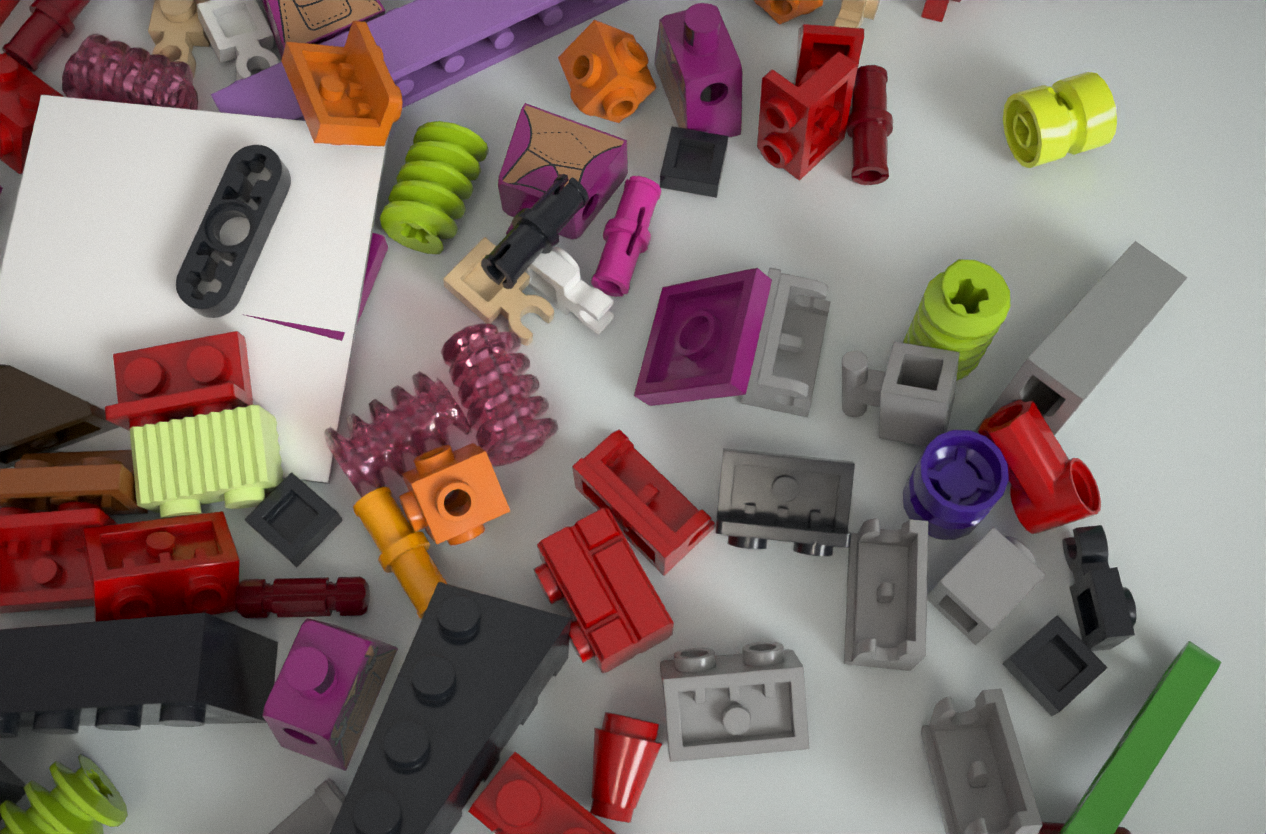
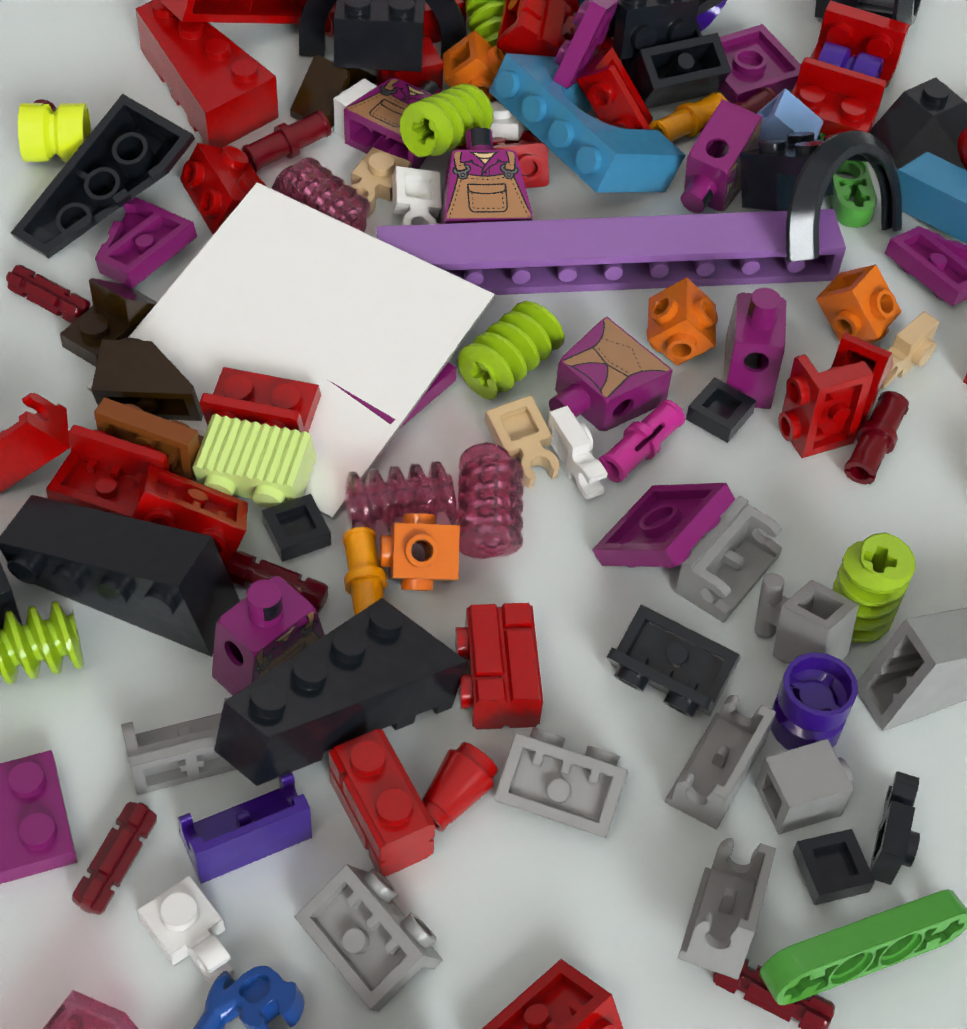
camera: 20 degrees right, 15 degrees down
(234, 183) = (344, 339): black beam -> none
(344, 89) = (474, 255): orange bracket -> none
(535, 231) = (569, 398): black pin -> none
(642, 501) = (561, 621): red hinge -> none
(1044, 482) = (888, 733): red piece -> none

